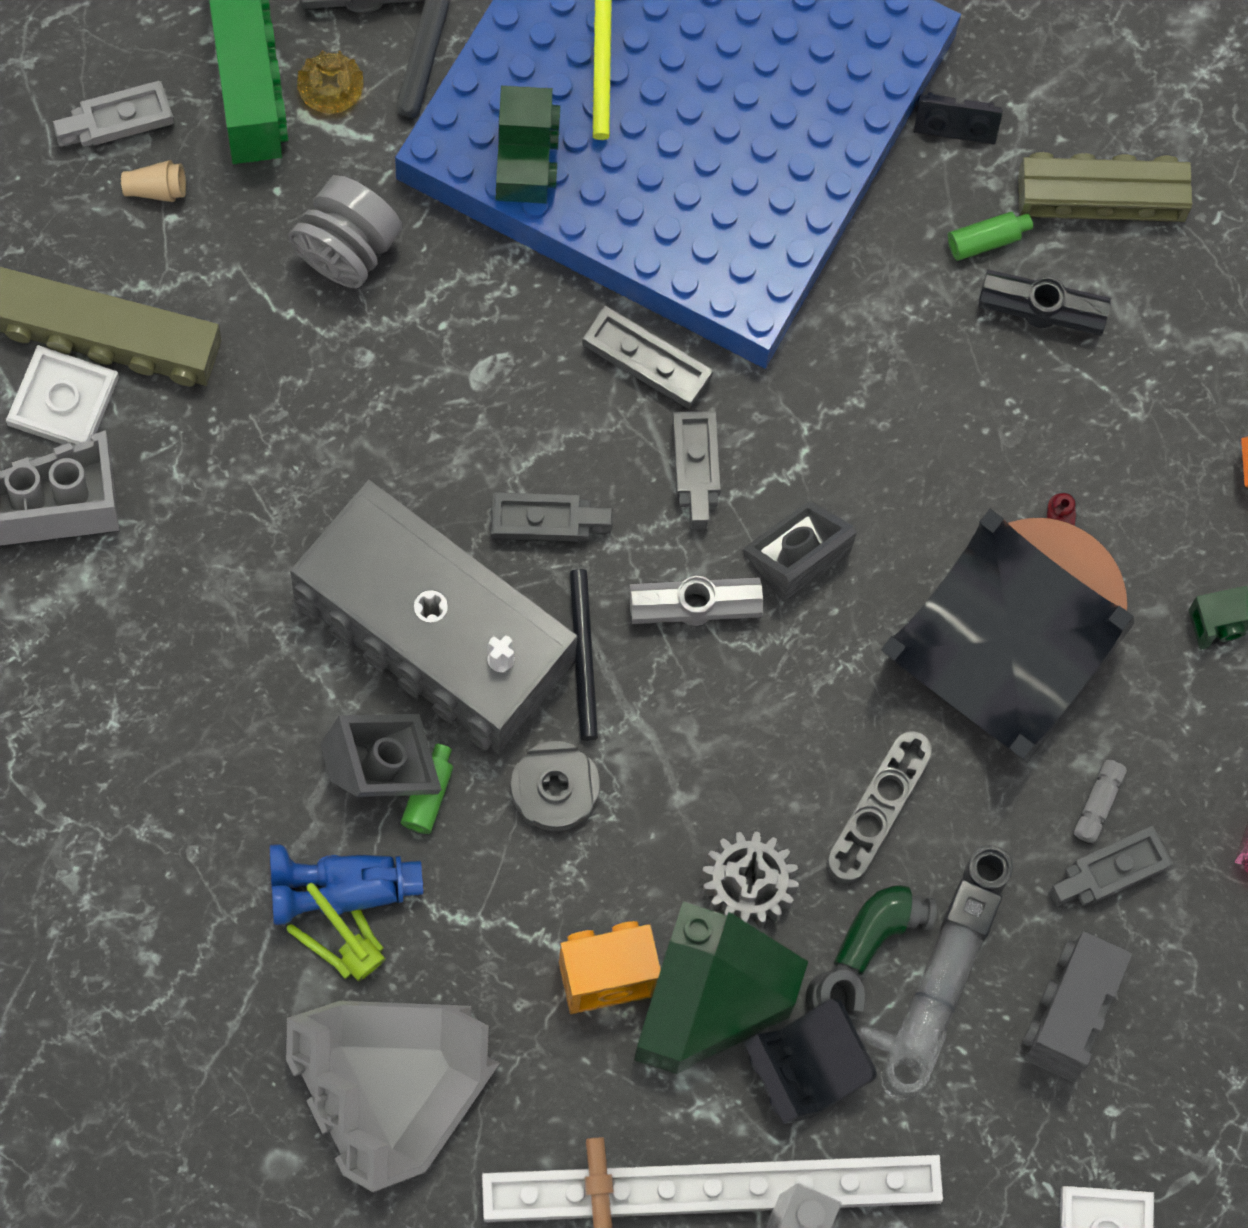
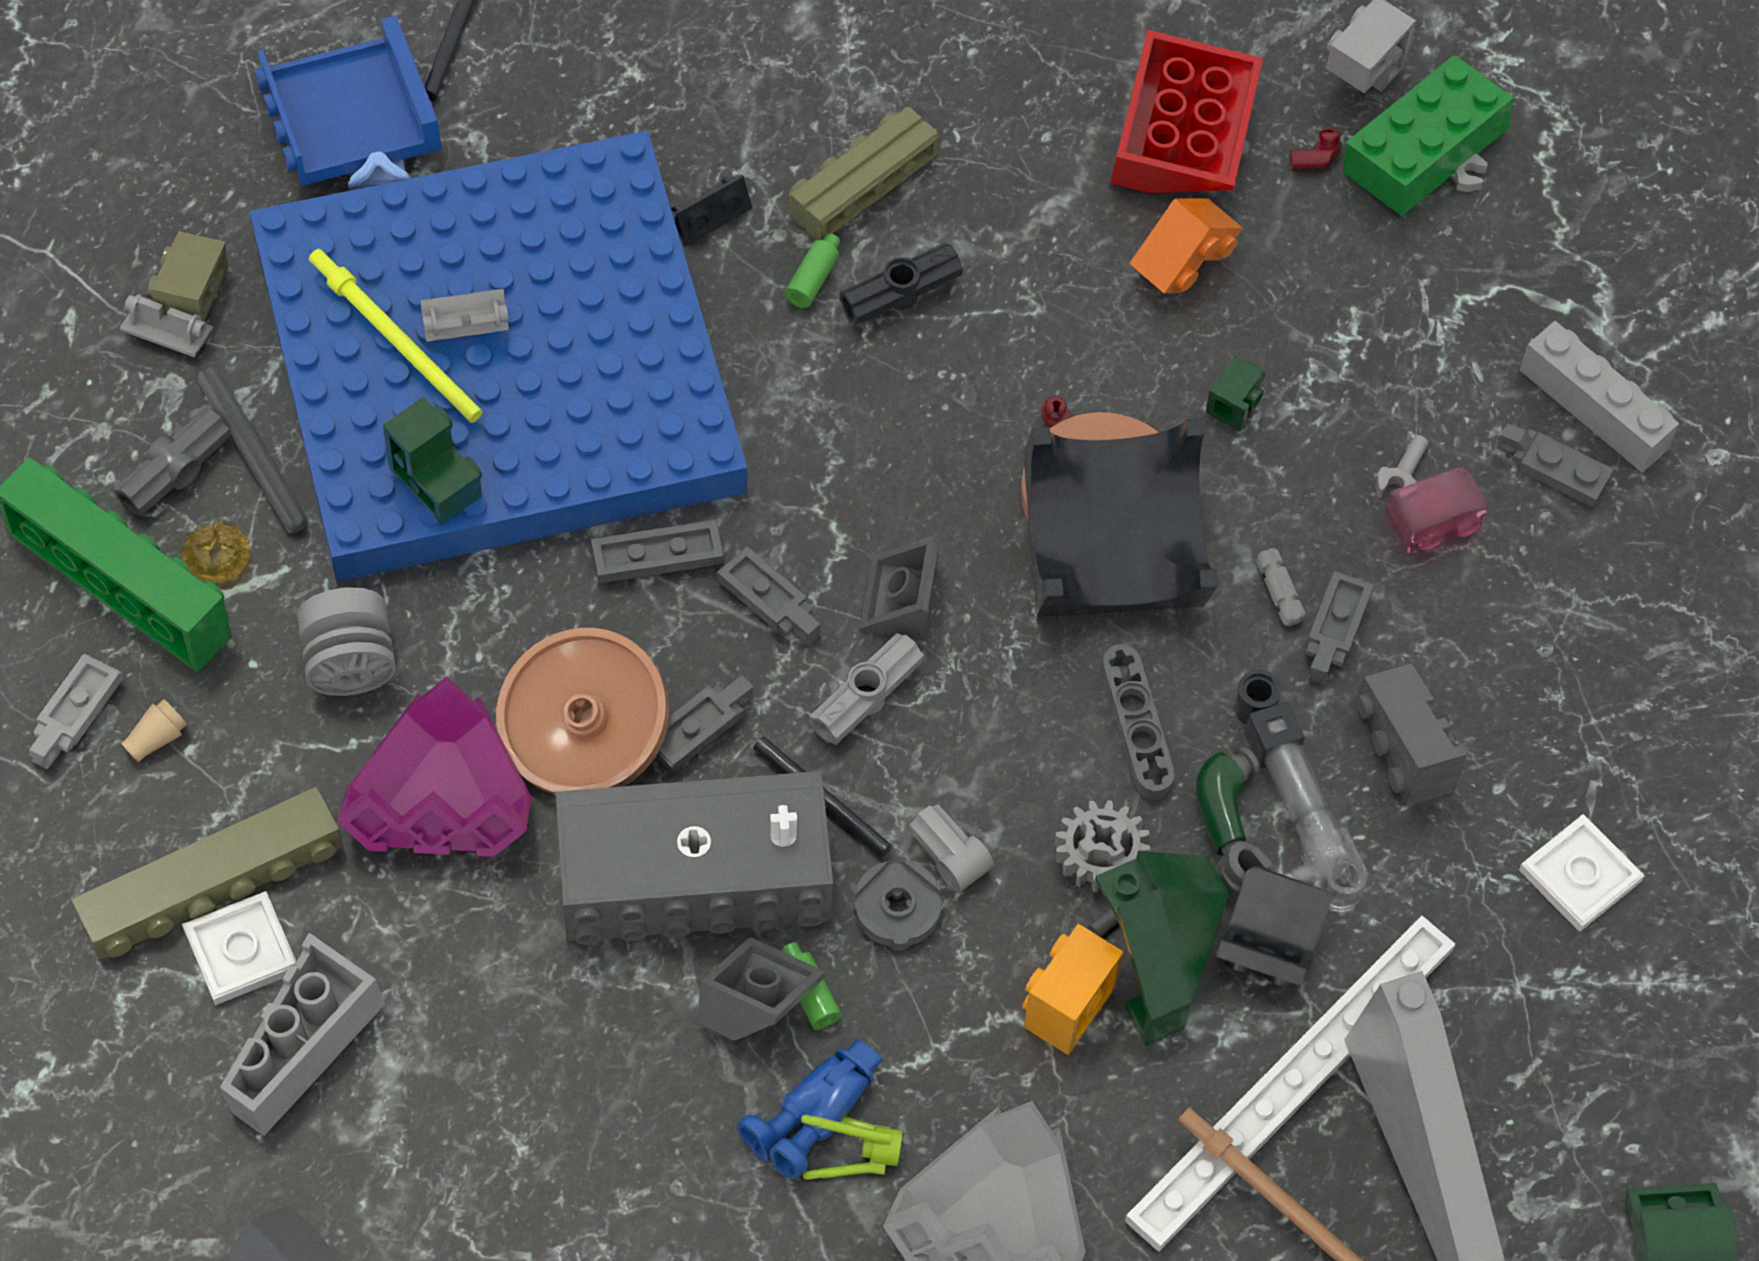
camera: 40 degrees left, 10 degrees down
(310, 397) = (438, 782): none -> magenta panel
(463, 435) = (583, 711): none -> nougat dish
(635, 787) = (957, 857): none -> light grey piece
(667, 48) = (464, 315): none -> light grey hinge

